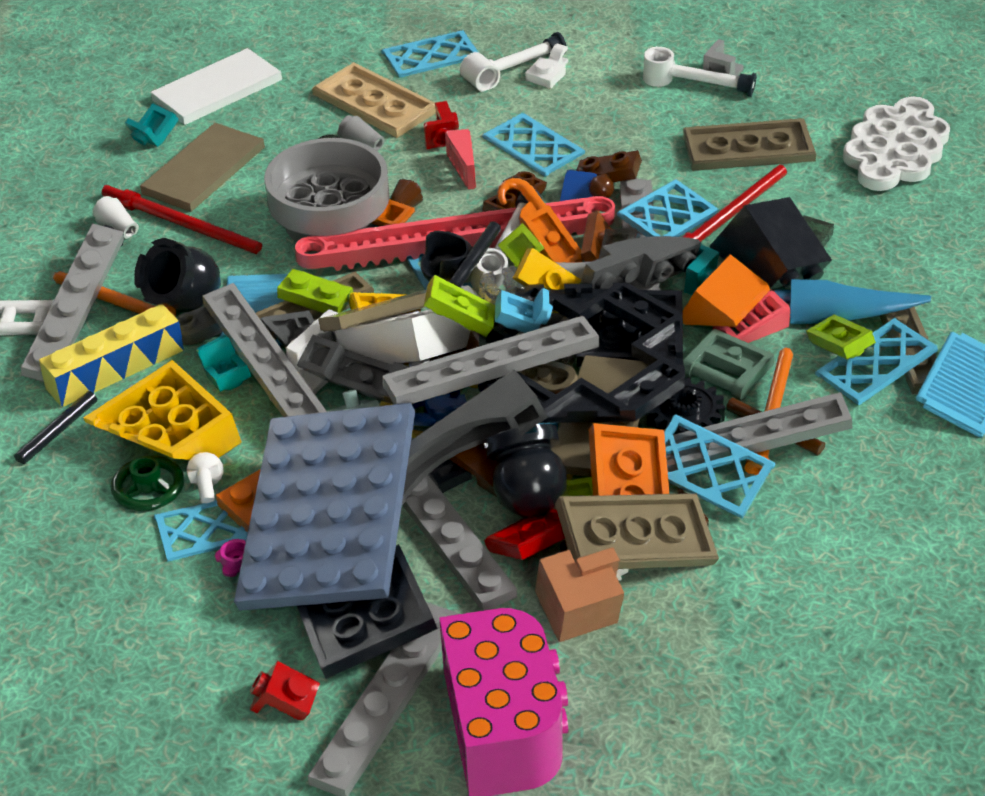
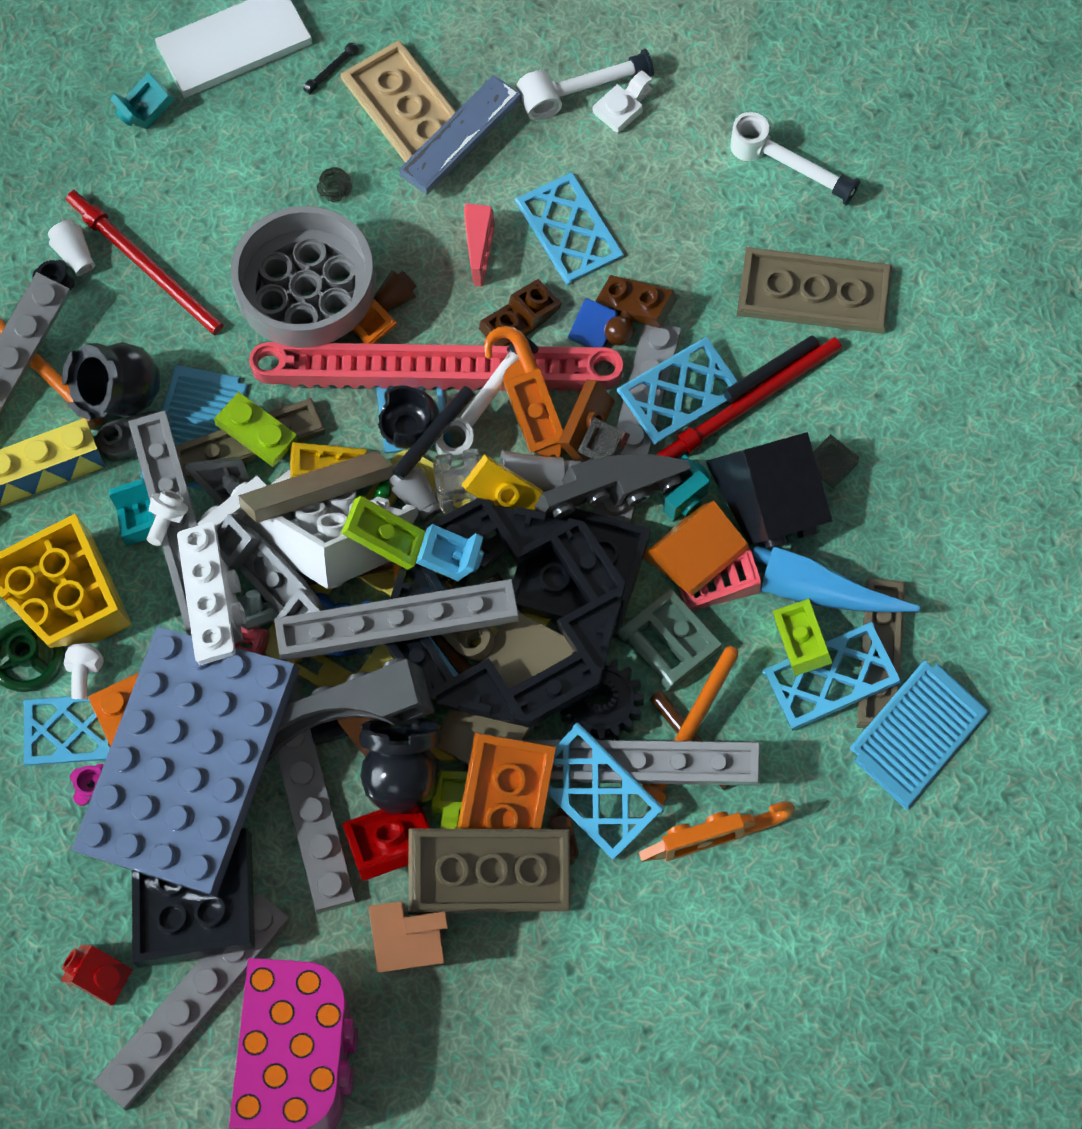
camera: 15 degrees right, 25 degrees up
(202, 167) = (187, 179): dark tan tile -> none
(256, 340) = (167, 507): none -> white plate
(290, 99) = (351, 49): none -> black hinge
(312, 382) = (210, 595): none -> white bracket
(358, 130) = (372, 170): light grey cone -> none
(421, 102) = (460, 135): none -> sand blue tile
(423, 65) = (480, 60): medium azure window -> none
(435, 130) = (477, 176): red bracket -> none
(518, 242) = (497, 423): lime plate -> none
(717, 61) = (826, 147): light grey panel -> none
(734, 191) = (770, 369): none -> black bar
(825, 477) = (716, 831): none -> orange plate
(896, 143) = (984, 333): white plate -> none

